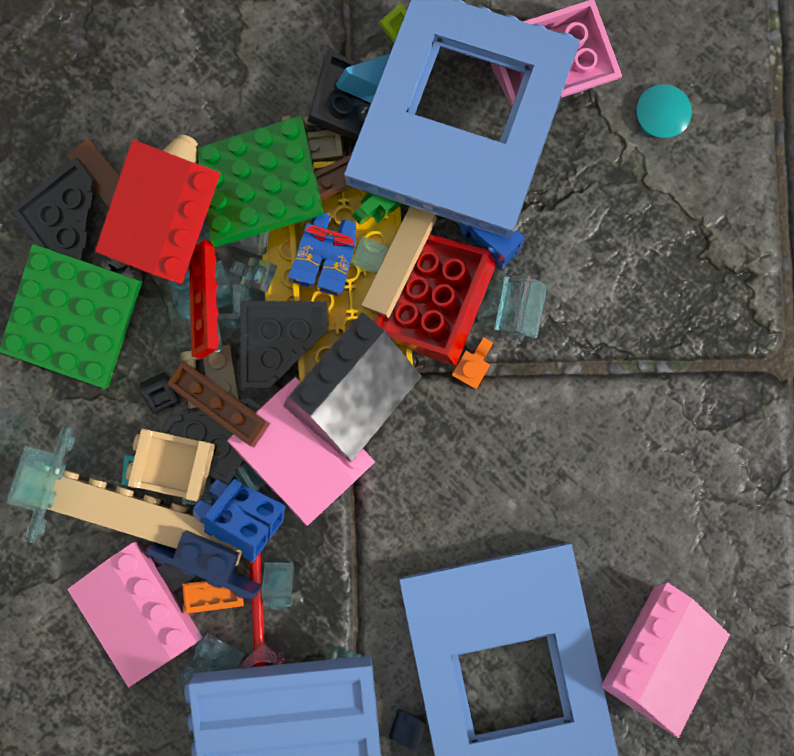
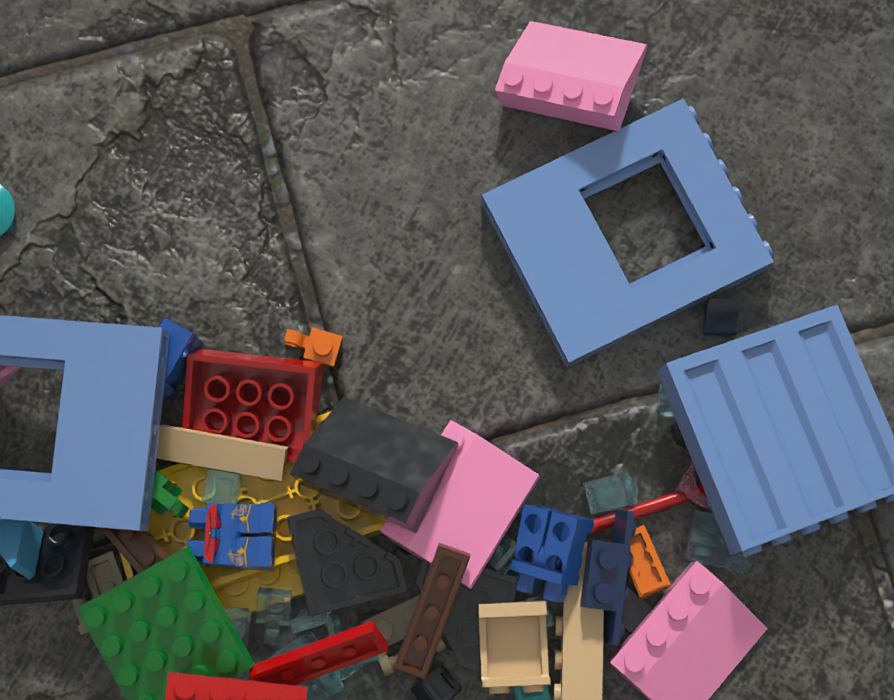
camera: 105 degrees left, 5 degrees down
(521, 306) = (239, 311): clear light blue panel -> none

